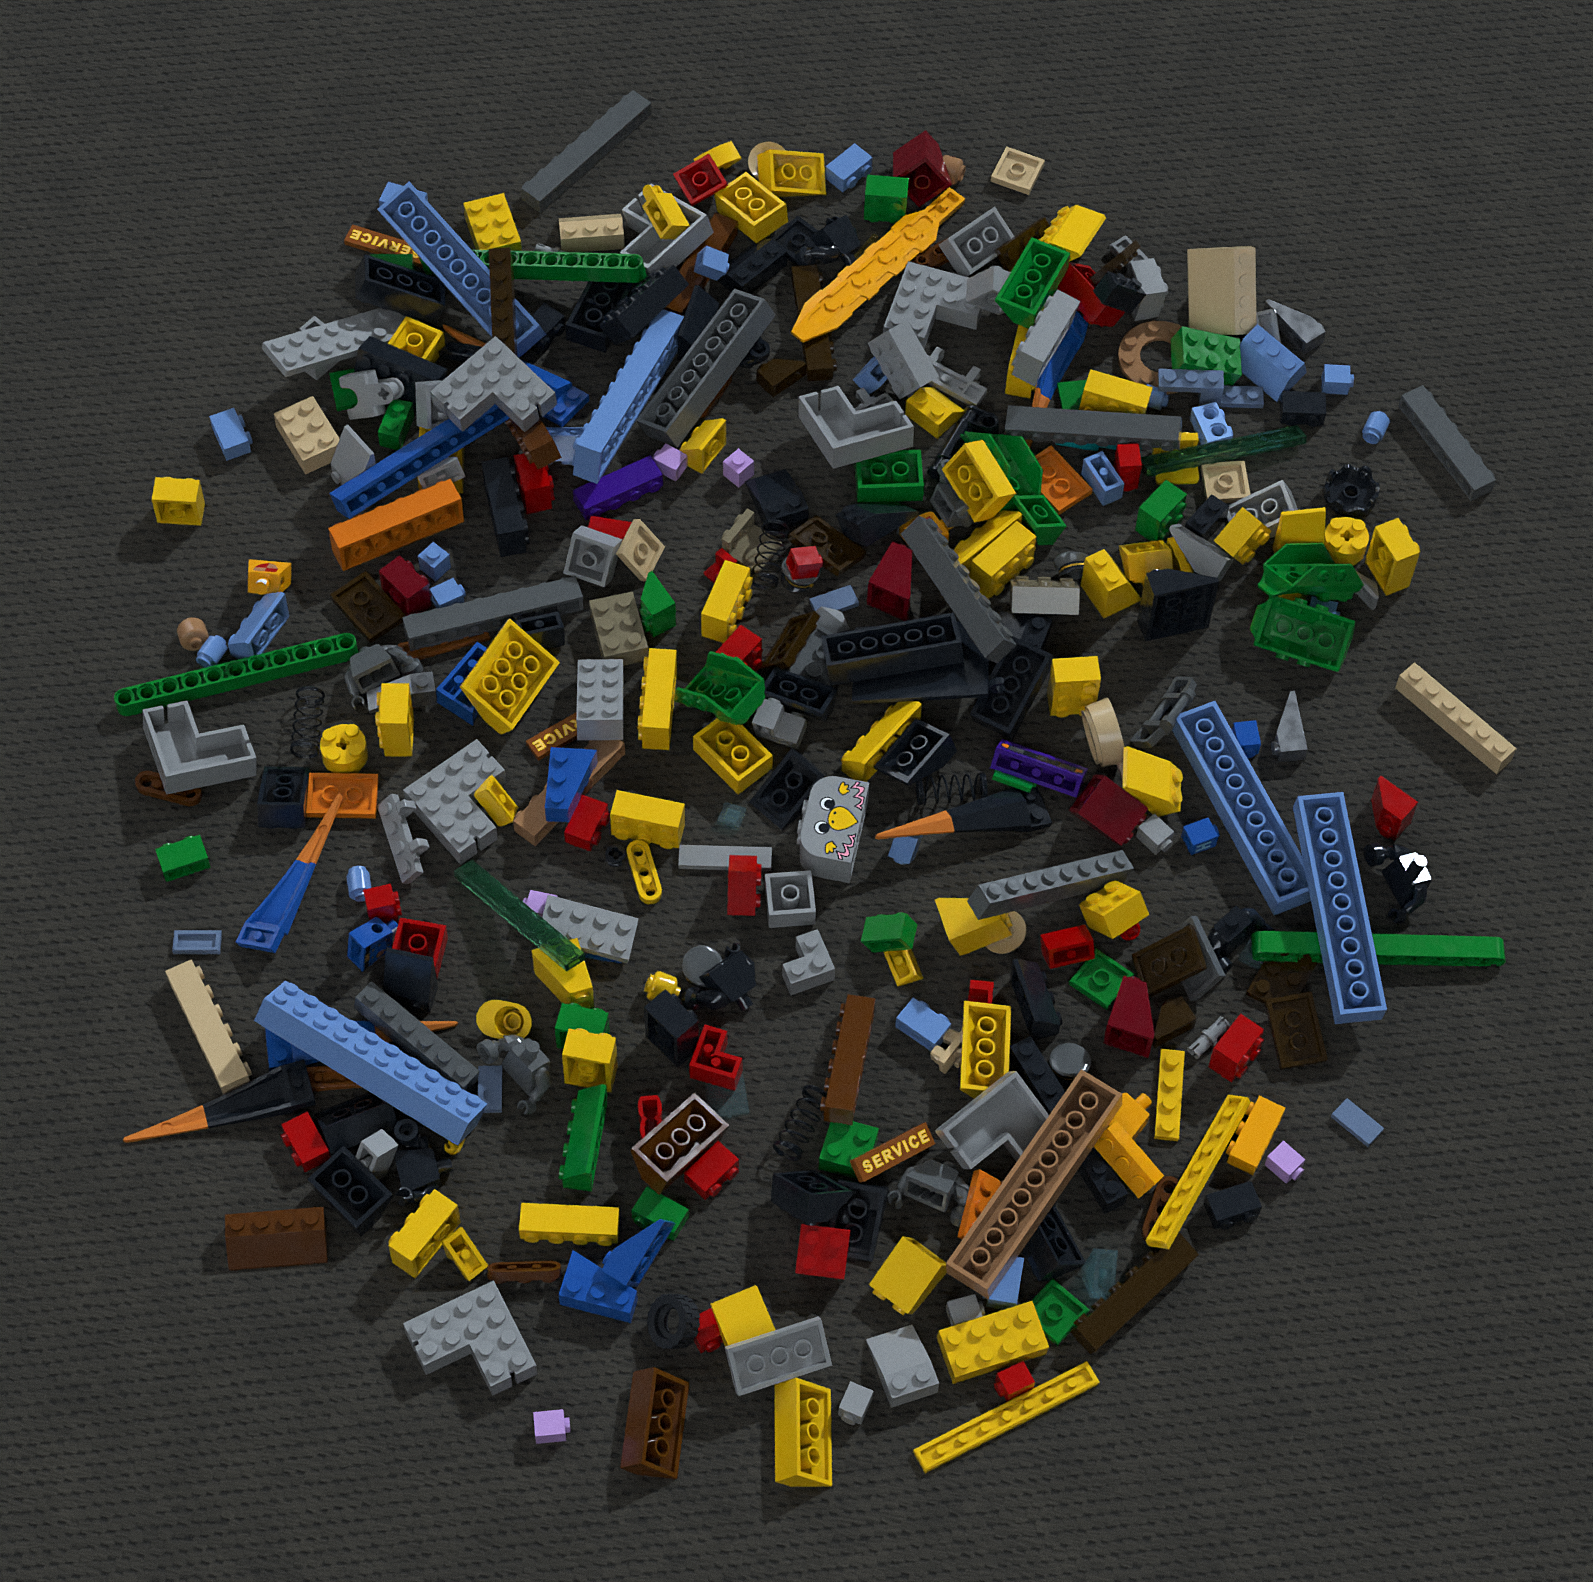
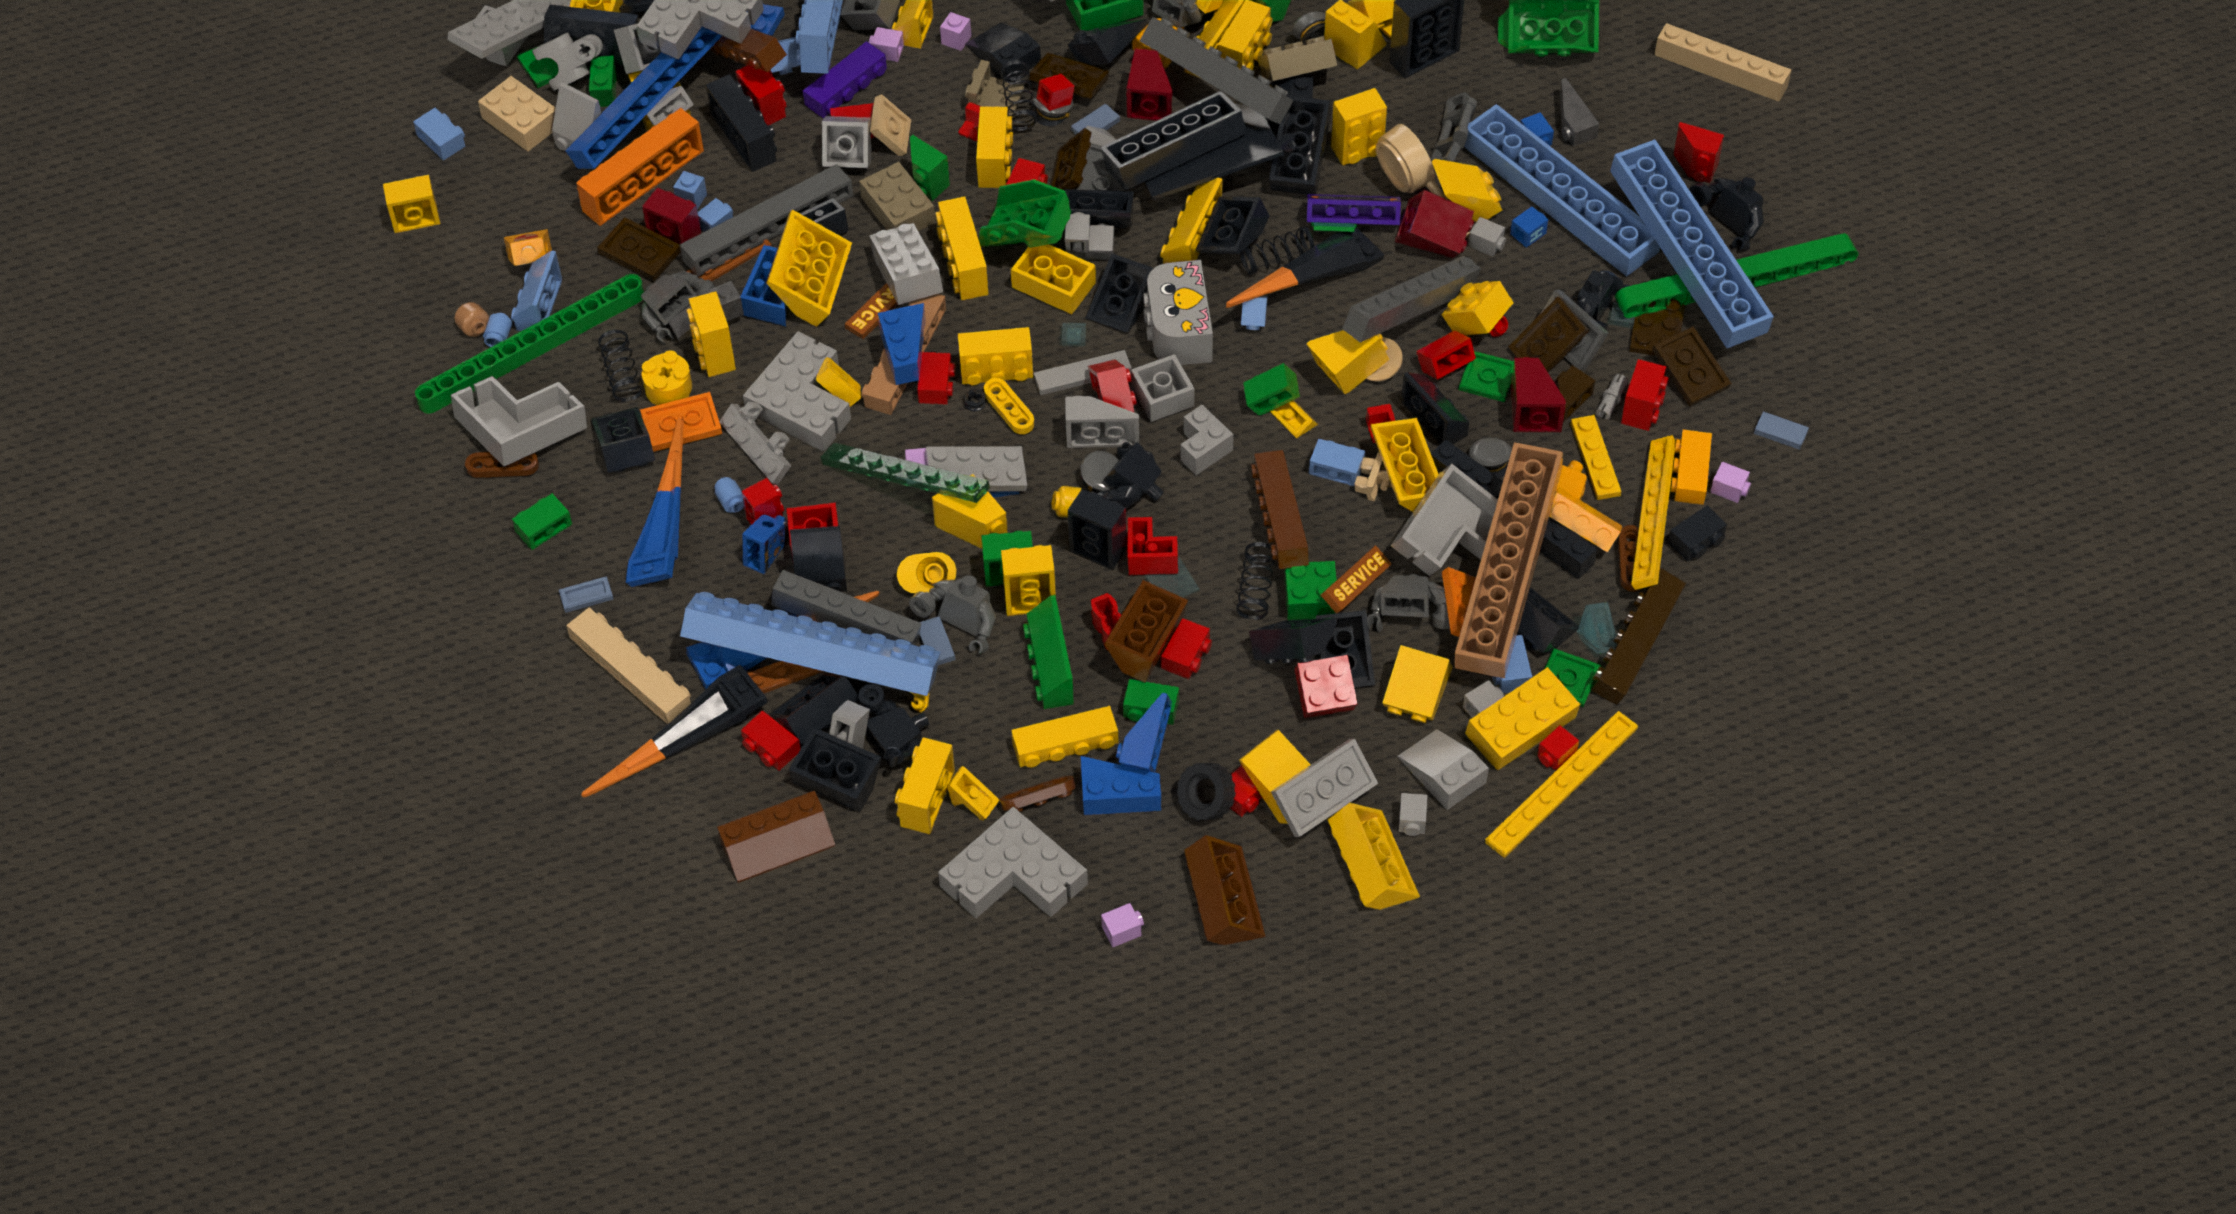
camera: 15 degrees left, 5 degrees down
(712, 917) = (1099, 423): none -> light grey slope

